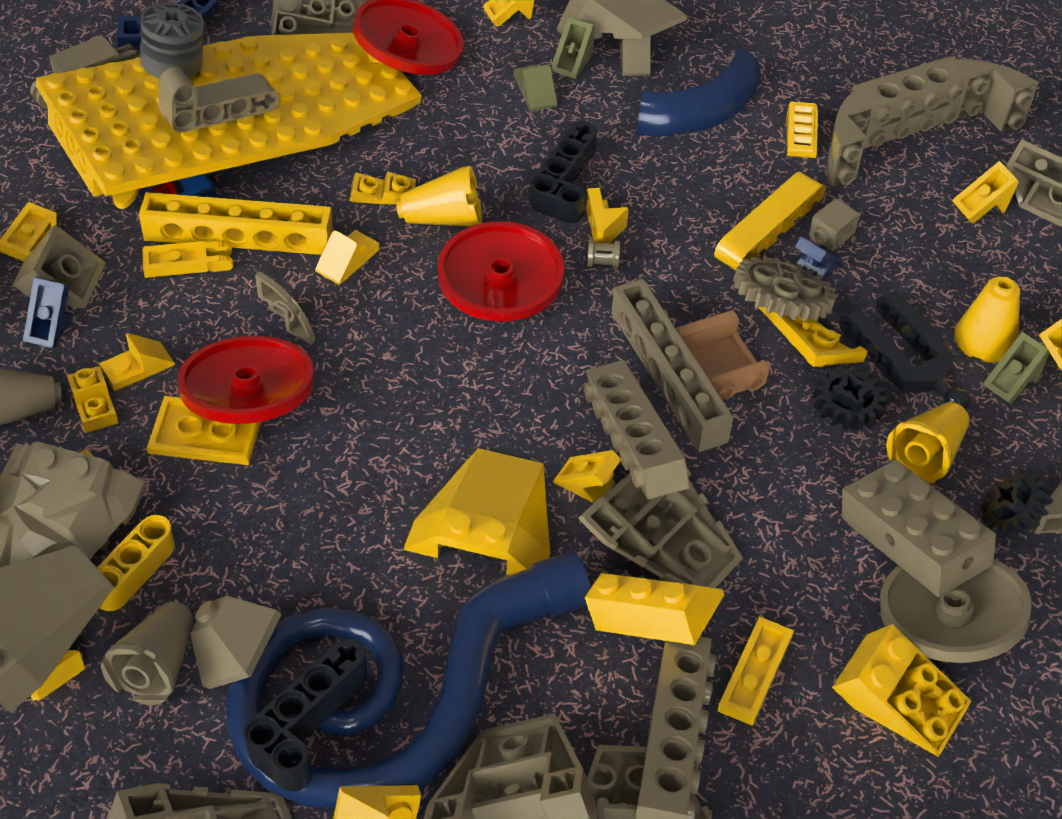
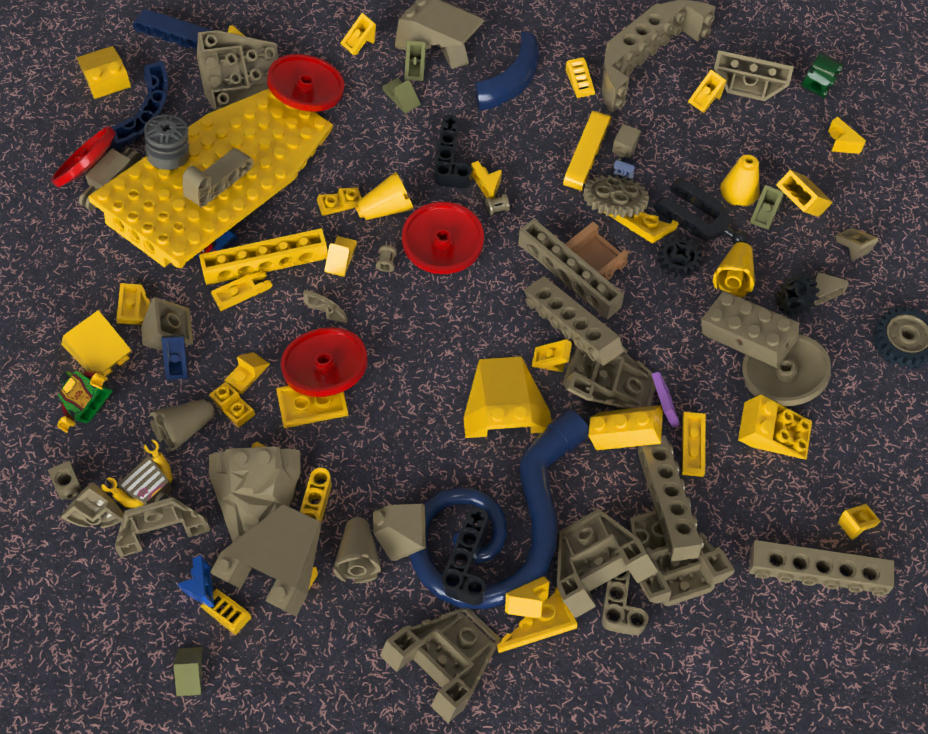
camera: 20 degrees left, 10 degrees up
(61, 36) = (84, 157): none -> red dish
(408, 276) = (386, 258): none -> dark tan bush
(734, 587) = (665, 399): none -> medium lavender tile

